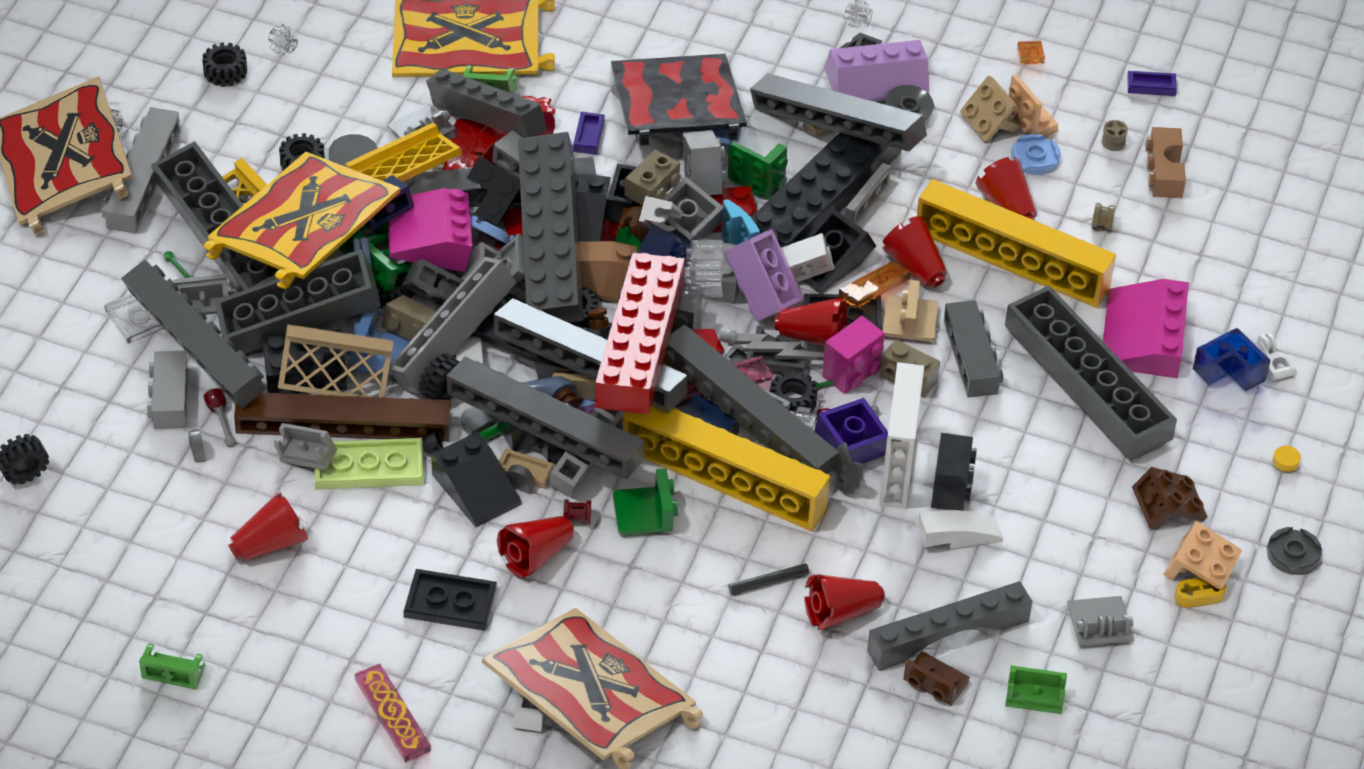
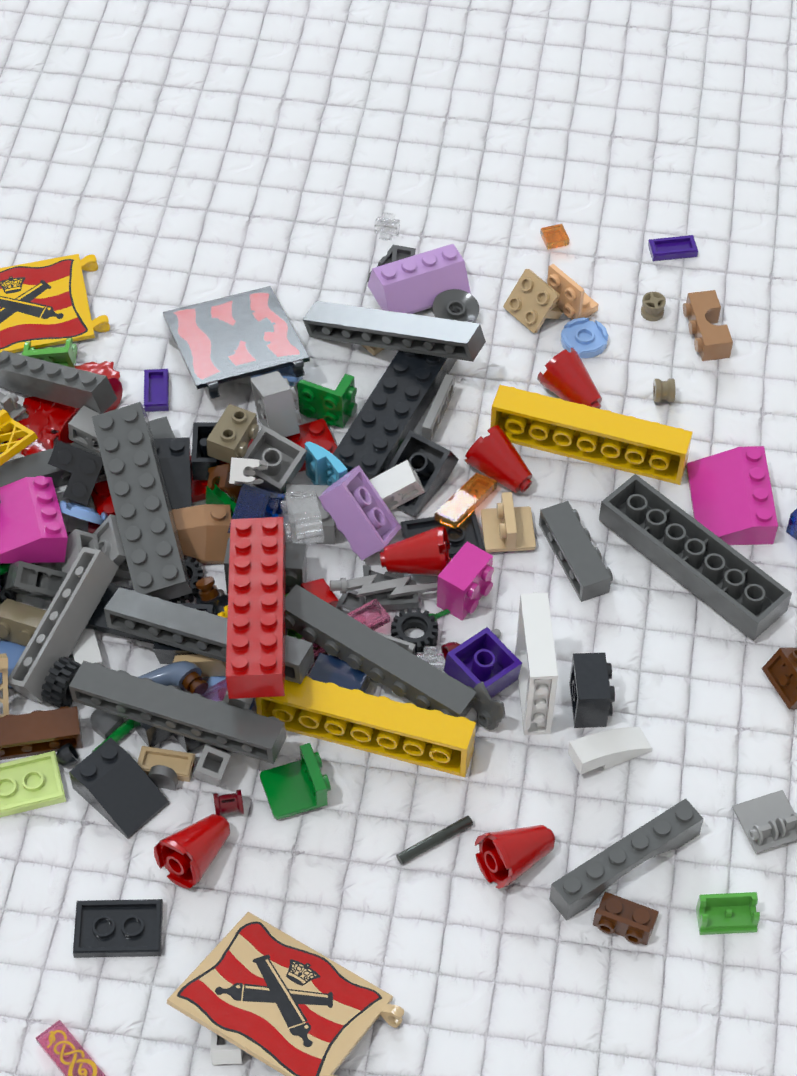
camera: 10 degrees left, 5 degrees up
(904, 353) = (517, 578): dark tan brick -> none

